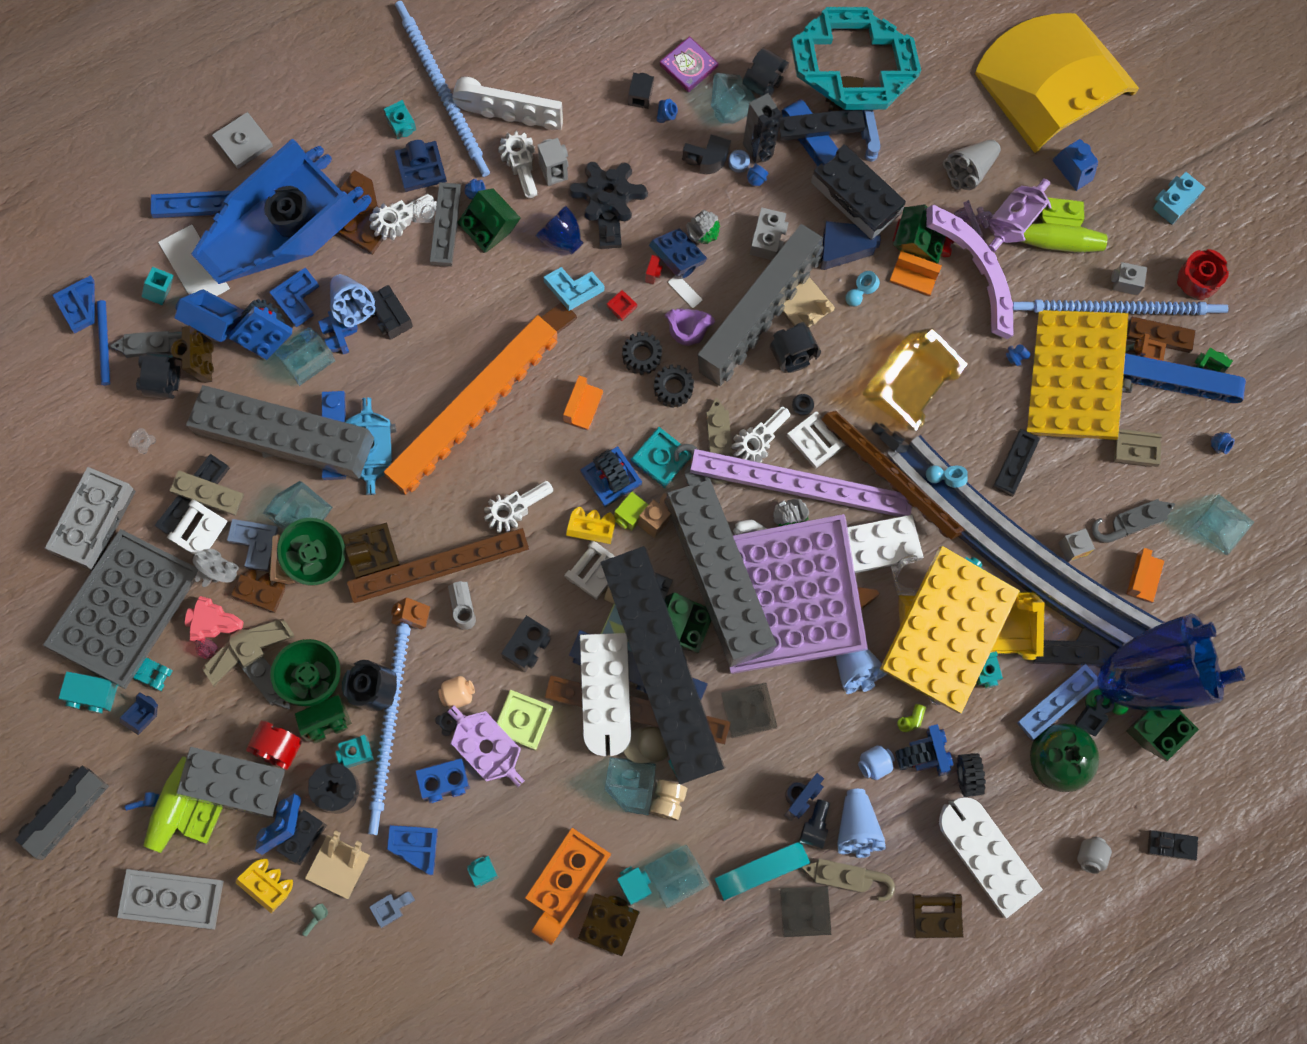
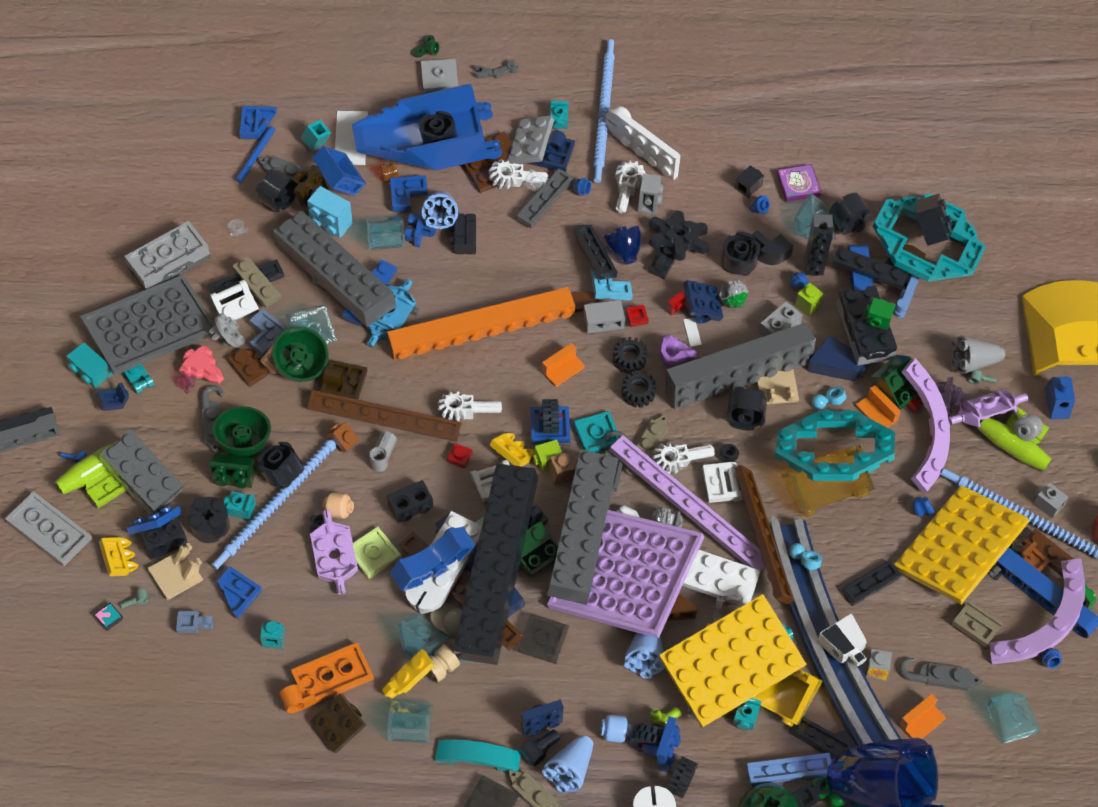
camera: 35 degrees right, 15 degrees down
(188, 204) = (370, 94): blue plate -> none
(208, 113) = (430, 47): none -> dark green piece
(233, 369) = (330, 212): none -> medium azure brick
(246, 648) = (212, 396): dark tan plate -> none
(261, 329) = (366, 196): blue plate -> none
(263, 284) = (388, 171): none -> clear orange wheel
(274, 745) = (188, 466): red brick -> none
(299, 954) = (108, 616): none -> tile
(301, 105) = (485, 72): none -> dark grey piece
(390, 165) = (531, 140): none -> light grey plate
(441, 774) = (290, 553): blue brick -> none
(488, 219) = (577, 208): dark green slope -> none
(537, 258) = (595, 252): none -> black plate
(541, 562) = (459, 455): none -> red plate
(591, 325) = (604, 316): none -> light grey brick
(600, 702) = (432, 561): none -> blue brick
(634, 884) = (375, 708): teal brick -> none
(647, 832) = (409, 674): none -> yellow hinge
(683, 178) = (740, 253): none -> black brick
(739, 161) = (793, 265): light blue tile -> none
(780, 191) = (809, 299): none -> lime brick
(853, 36) = (933, 219): none -> black brick
(872, 175) = (879, 313): none -> green brick
(892, 378) = (843, 471): none -> teal plate
(893, 439) = (781, 511): black plate -> none
(985, 185) = (977, 376): none -> sand green hand
(1037, 543) = (844, 641): none -> white torso
(1072, 215) = (1028, 427): none -> light grey head
(1216, 409) = (1055, 629): none -> lavender plate

